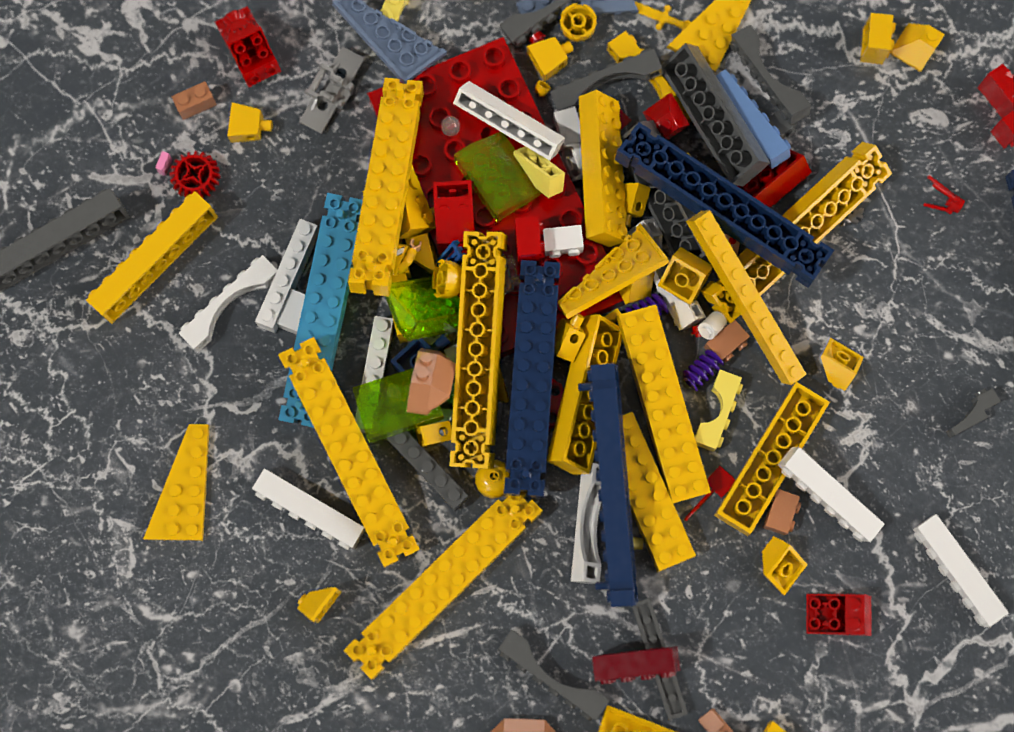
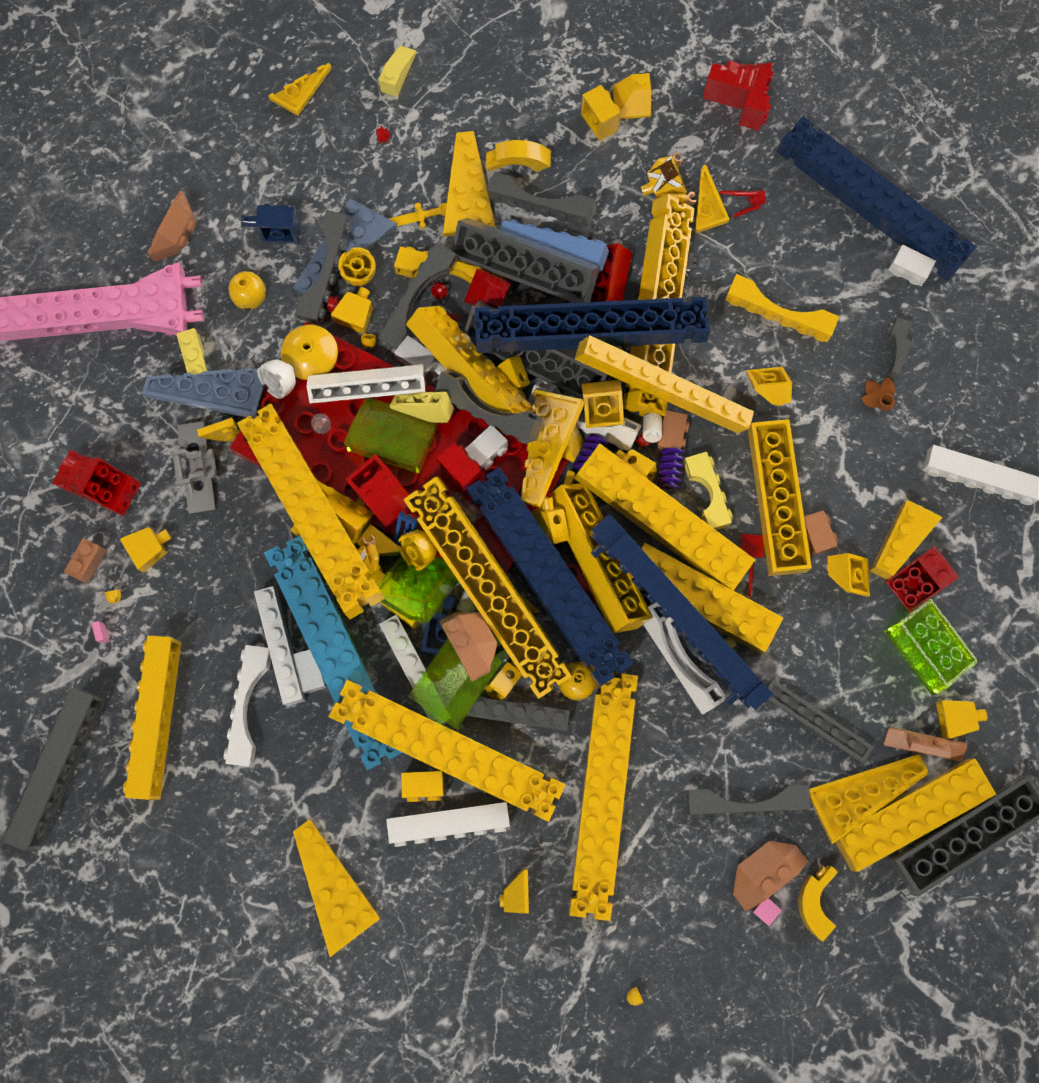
camera: 40 degrees left, 0 degrees up
(188, 179) = (138, 614): red gear -> none
(194, 143) = (113, 596): none -> yellow hinge
(312, 464) = (423, 785): none -> yellow brick
(370, 75) = (221, 431): none -> yellow wing
(445, 65) = (278, 377): none -> white cylinder
(485, 73) = (317, 359): none -> yellow dish
(602, 243) = (522, 425): none -> dark grey arch
(629, 89) = (439, 291): none -> red plate
(636, 663) = (807, 740): dark red brick -> none
(677, 346) = (640, 463): none -> yellow torso
(783, 24) = (518, 153): none -> yellow arch
(801, 673) = (931, 647): none -> clear neon green slope
(831, 494) = (845, 490): white brick -> none
(855, 568) = (904, 536): none -> yellow wedge
(889, 134) = (666, 179): none -> torso
(908, 183) = (710, 206): none -> yellow wing
(920, 343) = (746, 294): none -> yellow arch
(927, 438) = (877, 393): none -> dark orange plate

